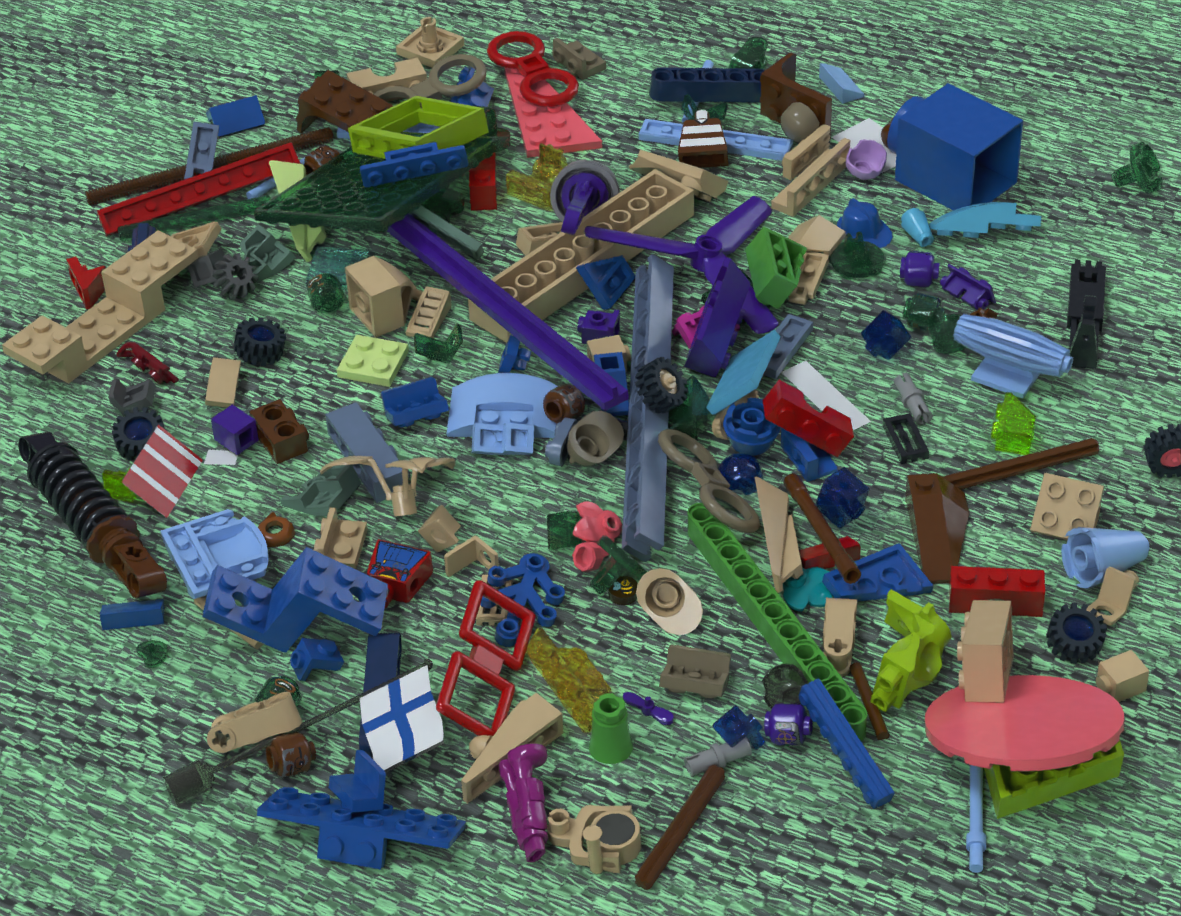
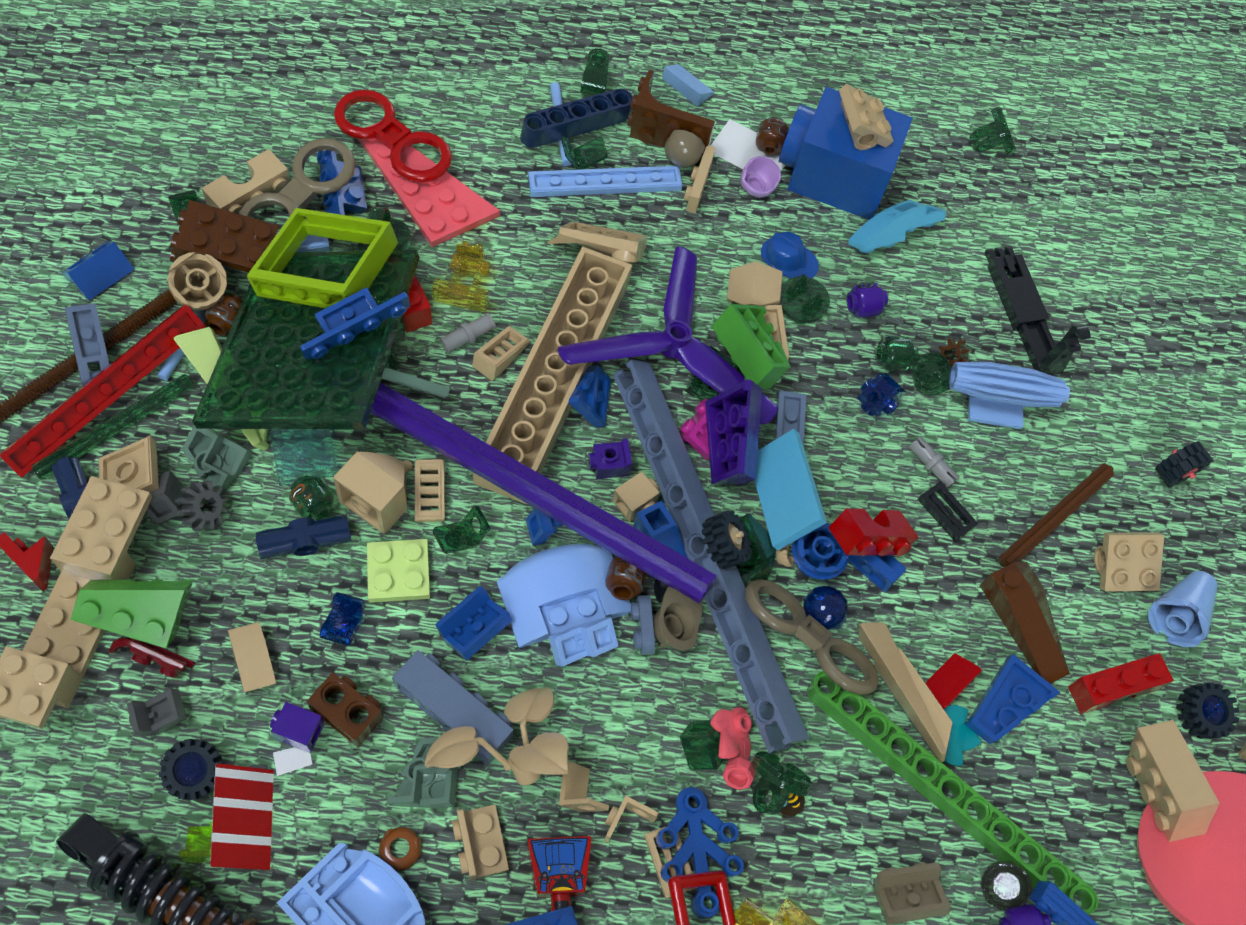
camera: 35 degrees left, 20 degrees up
(152, 321) = (134, 608): none -> bright green wedge
(259, 341) = (268, 588): black wheel -> none
(307, 128) = (197, 281): none -> tan cylinder
(307, 318) = (303, 537): none -> dark blue piece
(311, 377) = (343, 619): none -> clear blue bracket
(430, 43) = (270, 117): tan plate -> none
(523, 217) = (467, 333): none -> light grey pin
(577, 58) = (427, 108): dark tan bracket -> none
(580, 190) = (527, 289): piece -> none
(669, 601) = (847, 808): tan piece -> none
(703, 142) = (603, 192): reddish brown torso -> none
(812, 180) = (718, 212): tan fence -> none
(823, 393) = (851, 478): white sticker -> none
(839, 632) = (1011, 785): tan piece -> none
(842, 497) = (941, 616): clear blue head -> none
(842, 560) = (991, 709): reddish brown piece -> none
(866, 693) = (1069, 856): reddish brown bar -> none
(913, 659) = (1098, 818): lime hips -> none
(917, 226) = (840, 247): medium azure cone -> none
(963, 105) = (865, 118): none -> tan plate
(976, 291) = (926, 312): dark purple hinge -> none
(1015, 426) = (1036, 469): clear neon green slope -> none
(1115, 594) = (1212, 652): tan bracket -> none

